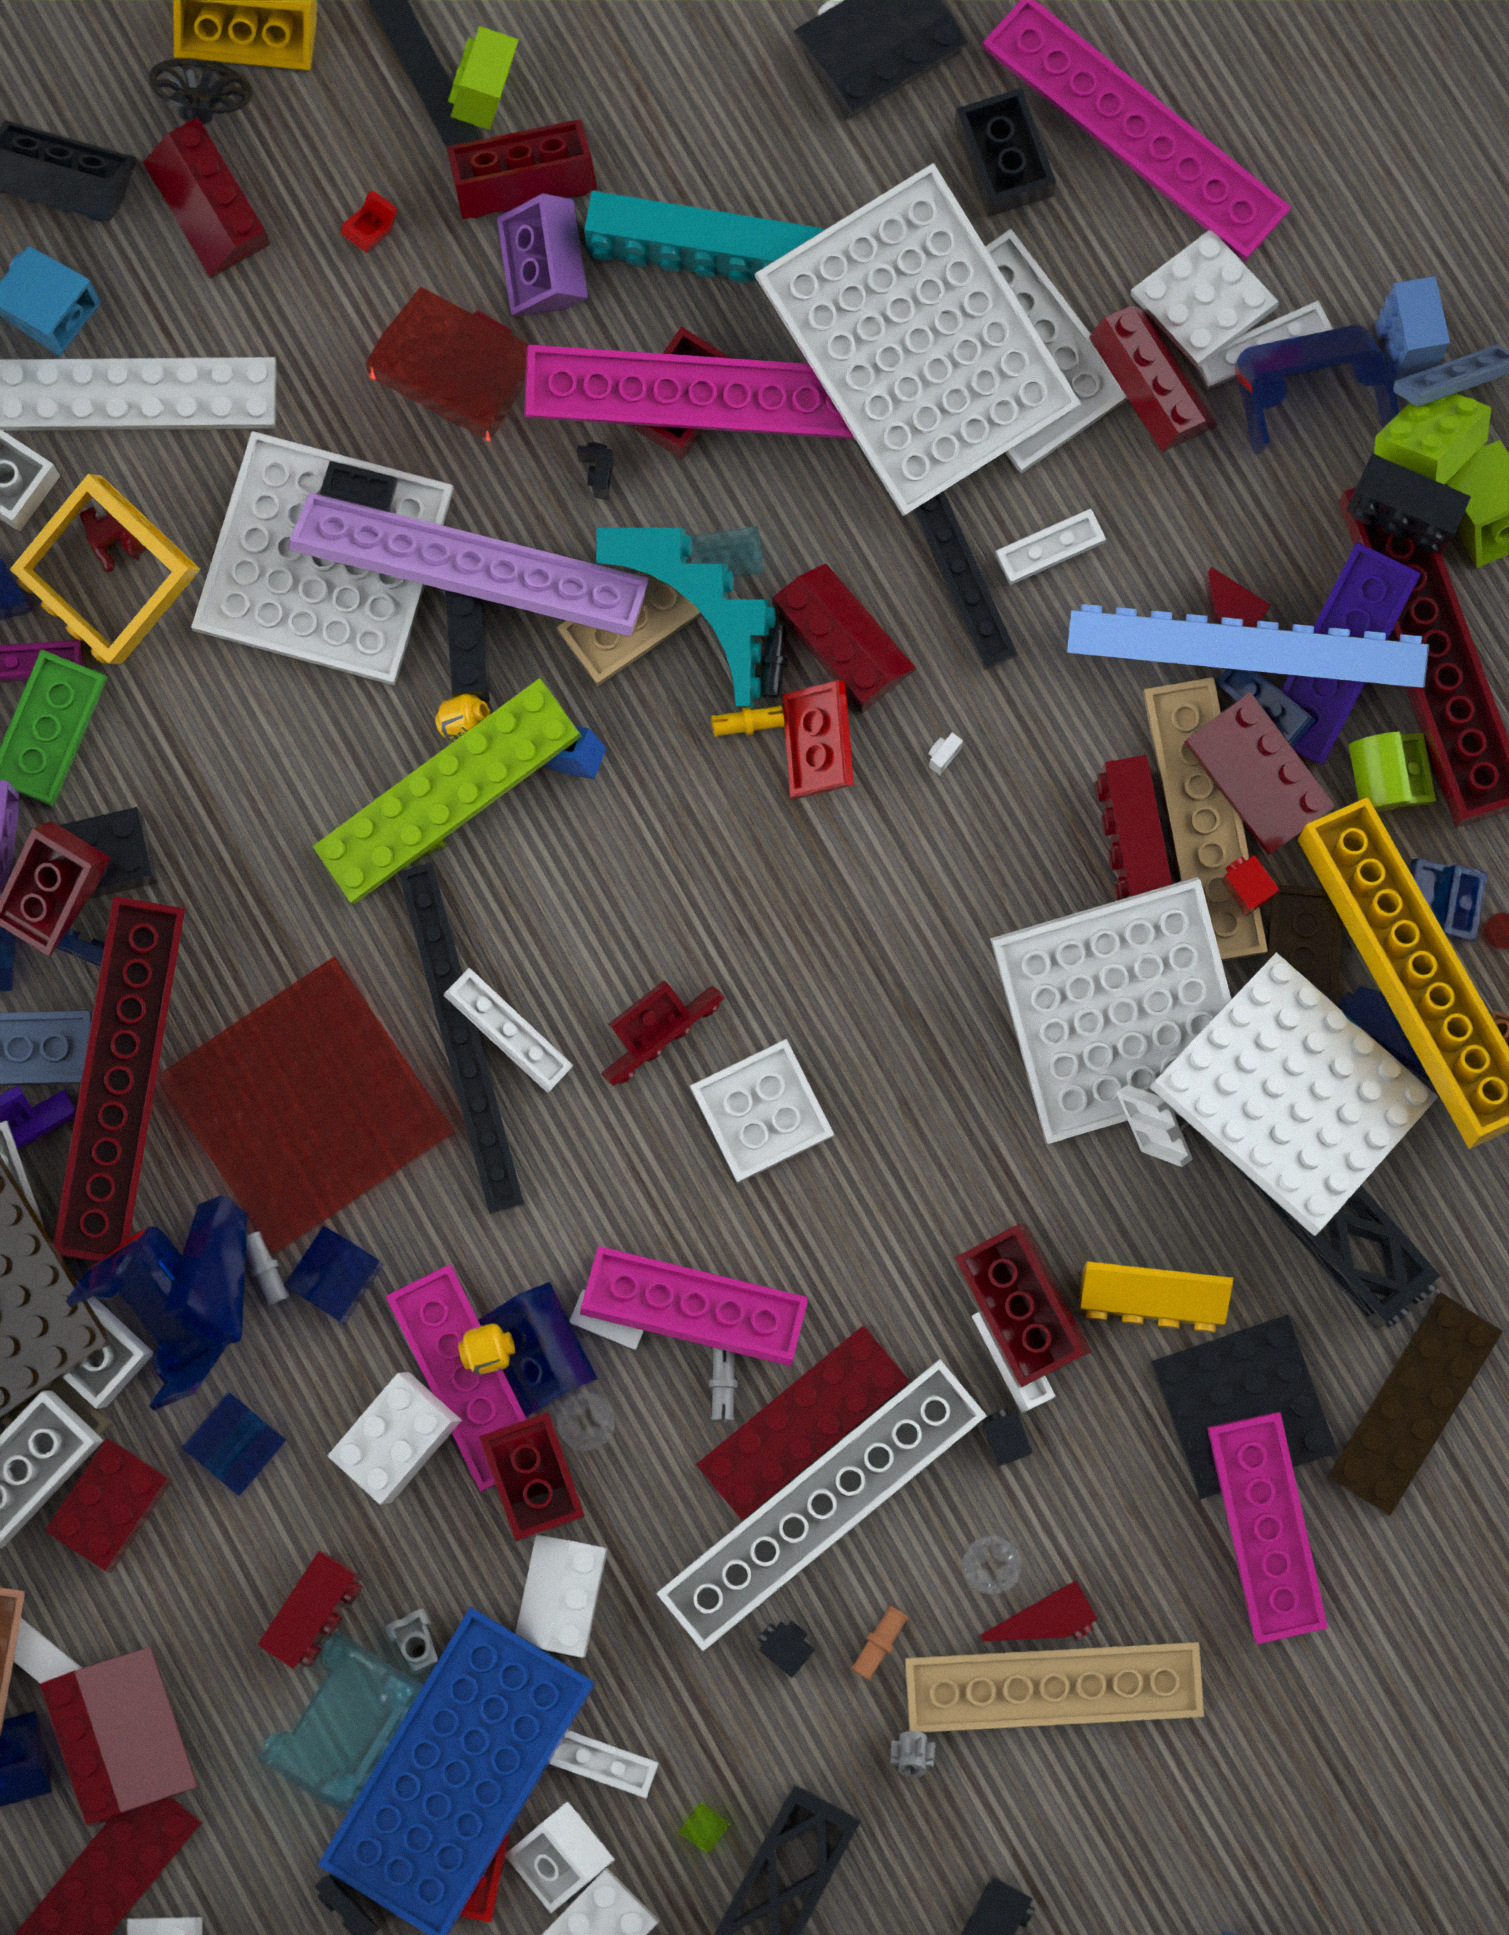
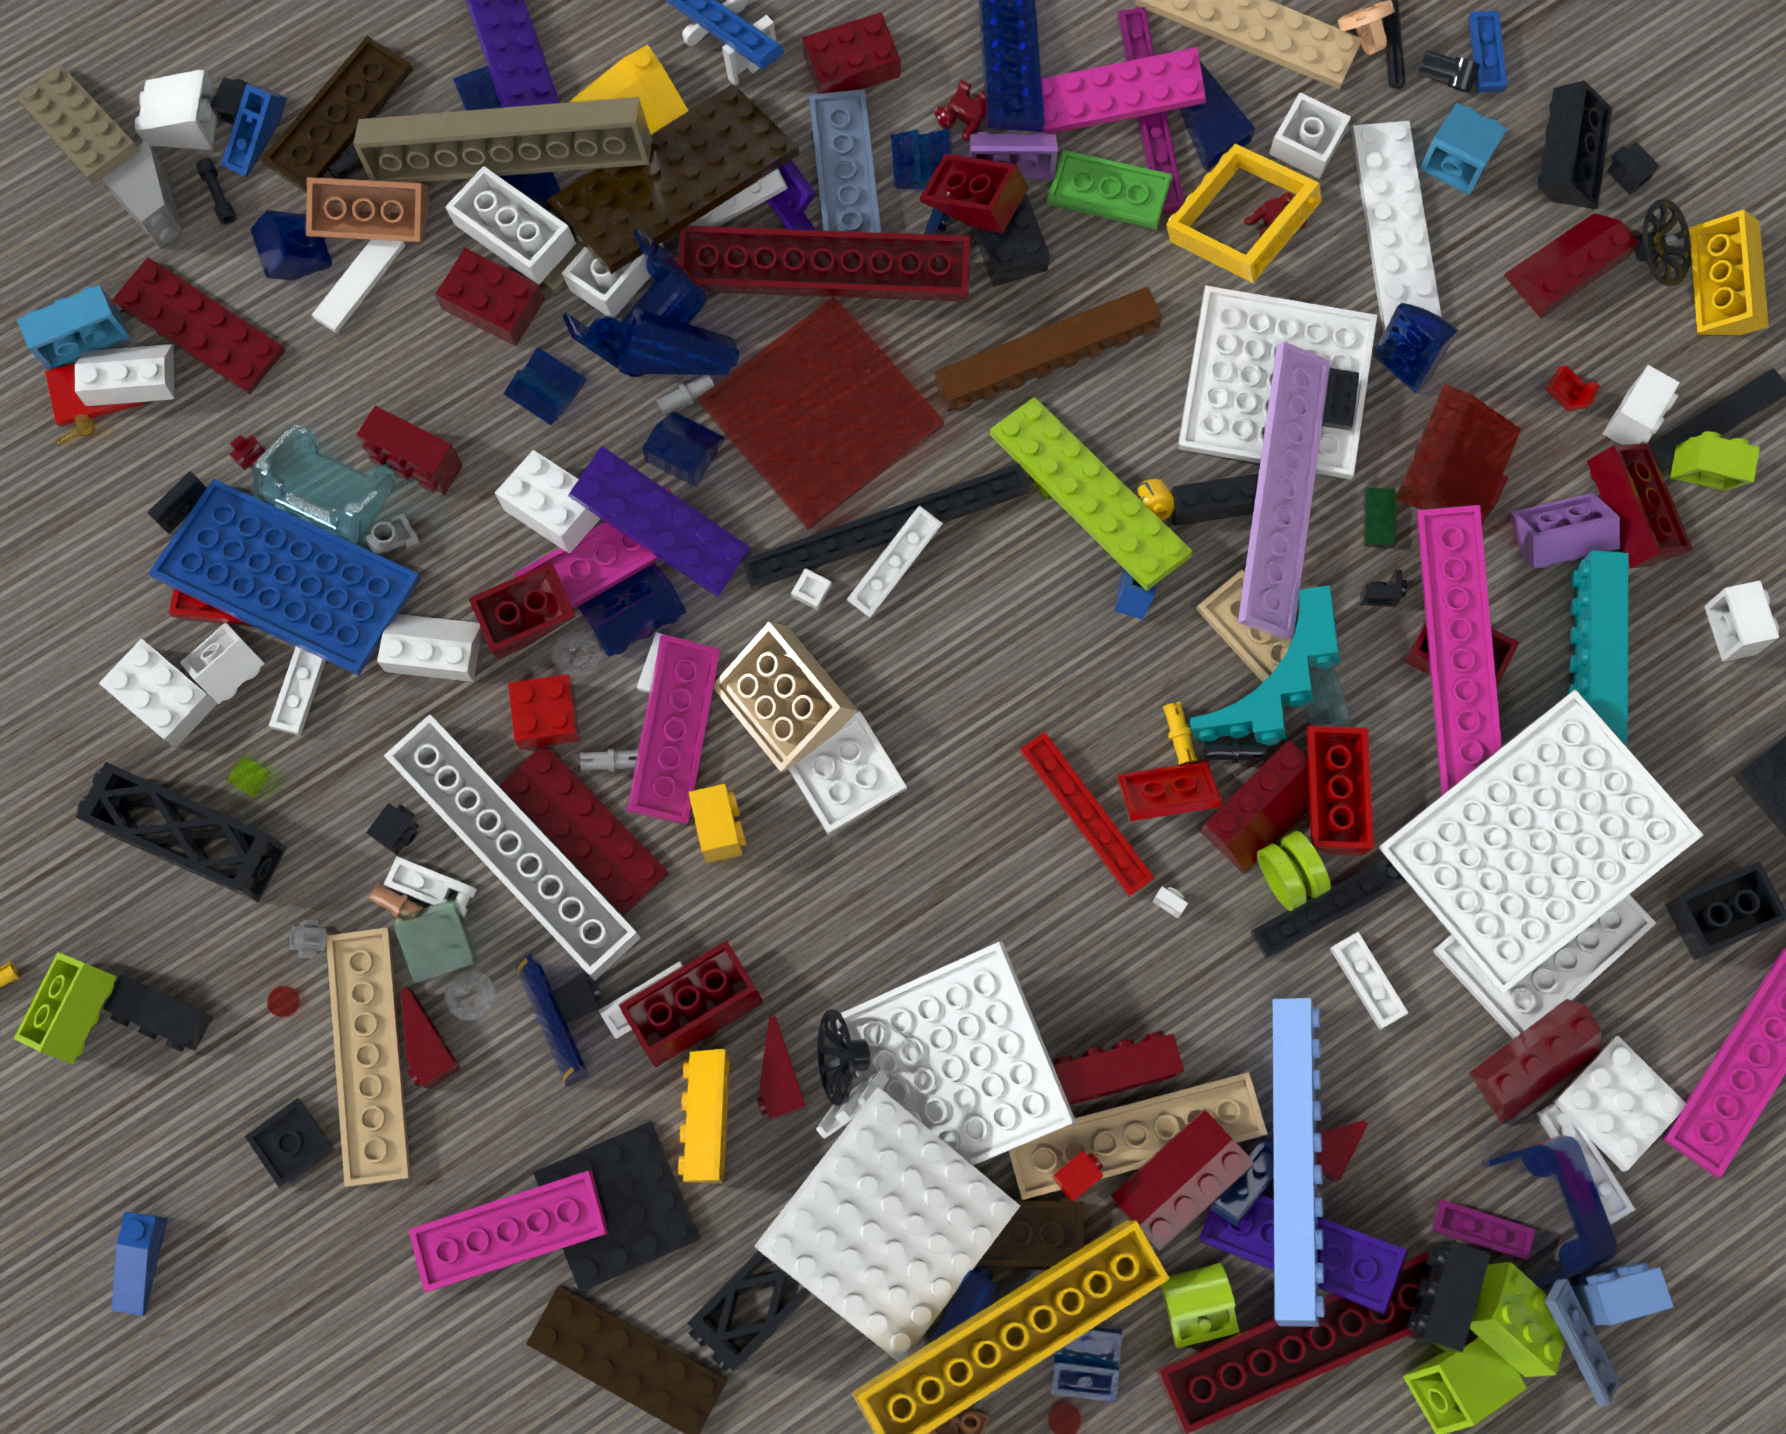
camera: 85 degrees right, 5 degrees down
(91, 109) = (1632, 167): none -> black brick
(118, 1736) = (307, 318): dark red slope -> none
(254, 824) = (1048, 349): none -> reddish brown brick
(287, 1820) = (246, 451): none -> dark red gear
(312, 390) = (1414, 344): none -> clear blue slope
(407, 147) = (1642, 408): none -> white brick
(436, 1306) = (659, 521): none -> dark purple plate
(486, 1349) = (625, 563): yellow head -> none
(504, 462) = (1379, 517): none -> dark green tile
(532, 1132) = (811, 589): none -> white plate
(653, 1024) = (911, 677): dark red bracket -> none
(658, 1460) = (544, 711): none -> red brick
(666, 1173) = (783, 696): none -> tan slope
(675, 79) = (1742, 621): none -> white brick
(815, 1259) = (715, 823): none -> yellow brick
(834, 547) = (1340, 790): none -> red slope
(834, 837) = (1087, 814): none -> red plate
(859, 1609) = (426, 884): none -> white plate
(924, 611) = (1293, 870): none -> lime wheel
(928, 1598) = (435, 940): none -> clear green brick
(981, 1789) = (283, 1001): none -> clear red piece
(1032, 1468) = (550, 1021): none -> clear blue slope
(1100, 1125) = (851, 1056): none -> black wheel
(1116, 1212) = (778, 1080): none -> dark red slope
(1149, 1781) = (289, 1143): none -> black plate
(1330, 462) = (1483, 1230): none -> magenta plate

